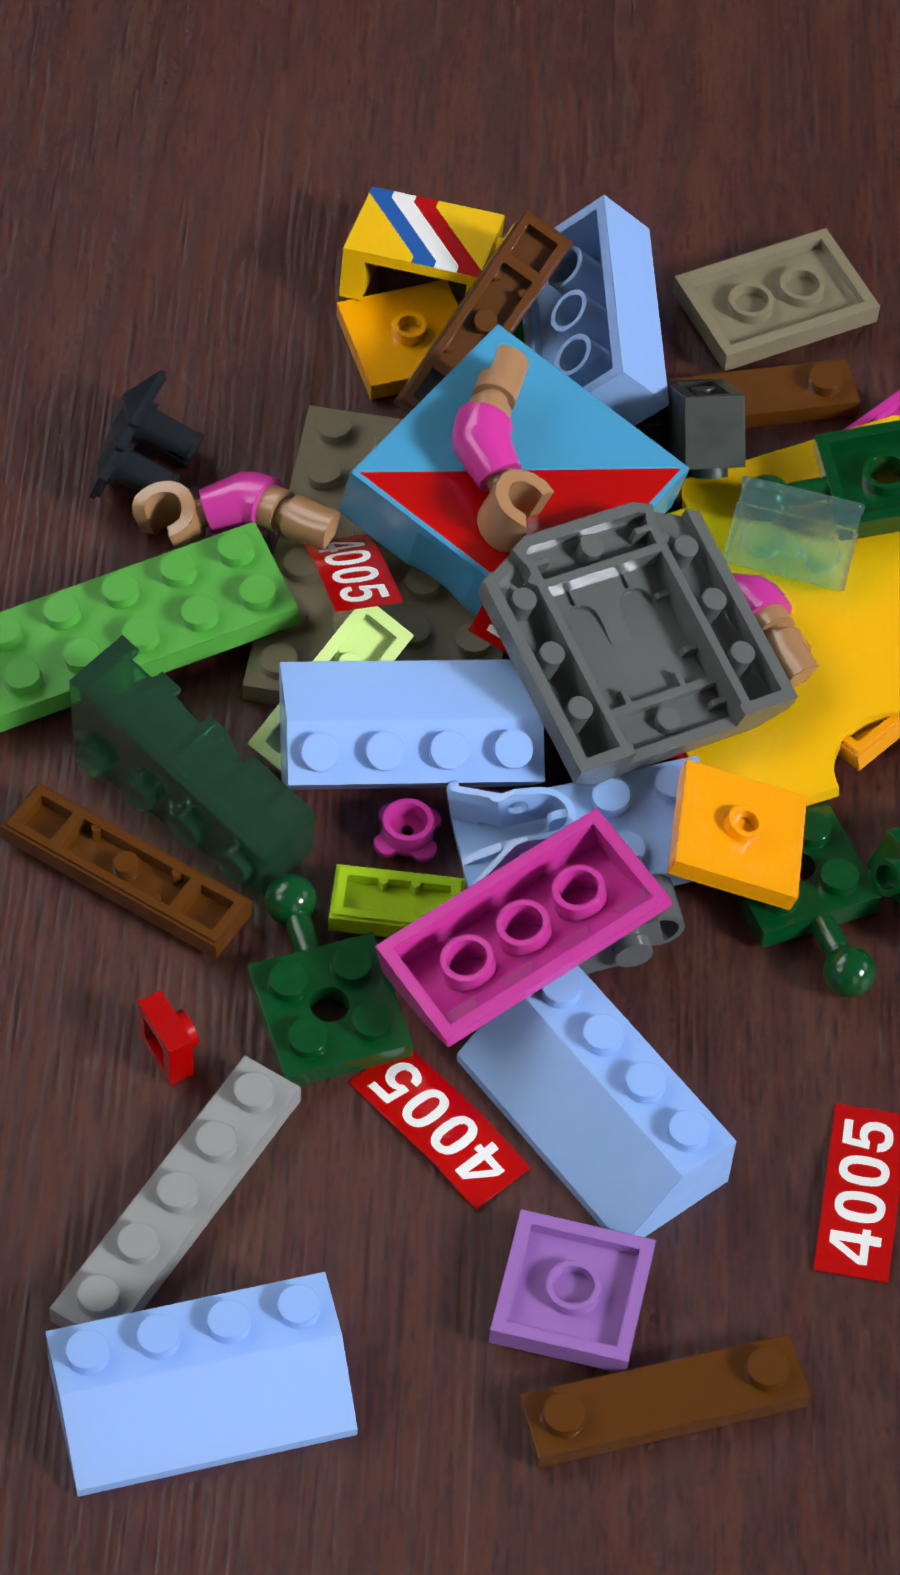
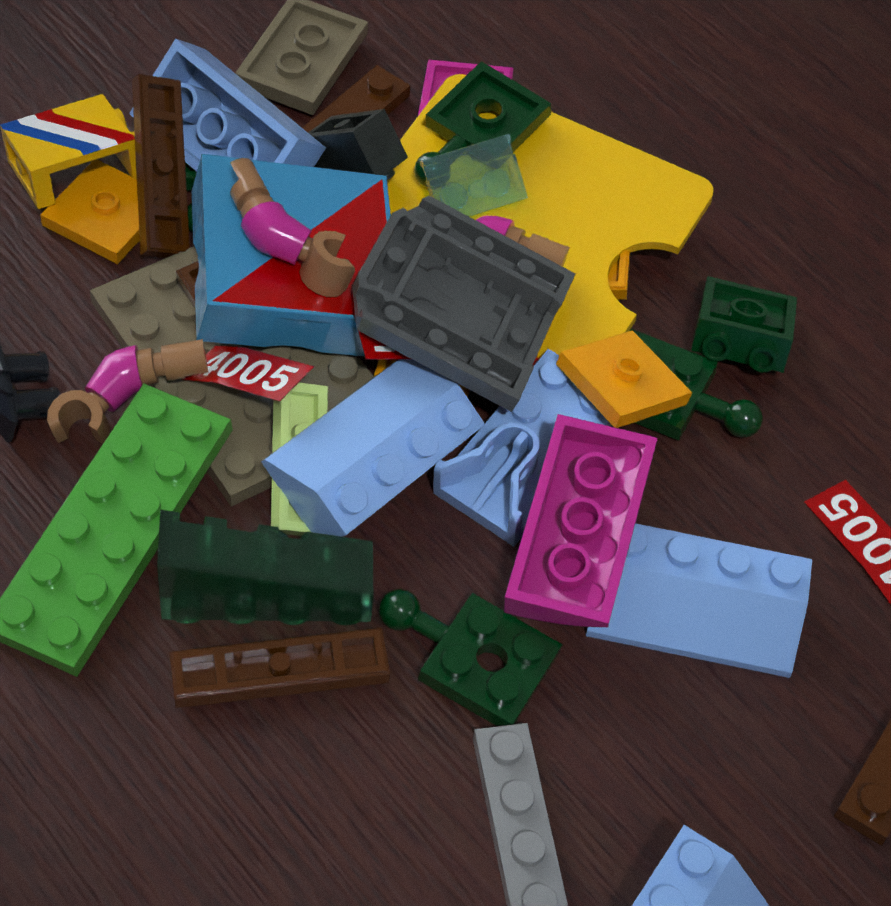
camera: 45 degrees left, 0 degrees up
(167, 1036) = (419, 755): red plate -> none
(384, 899) = (462, 565): lime plate -> none
(412, 816) = (420, 503): dark pink plate -> none
(442, 1126) = (619, 682): red sticker -> none
(572, 1291) = (800, 722): medium lavender plate -> none

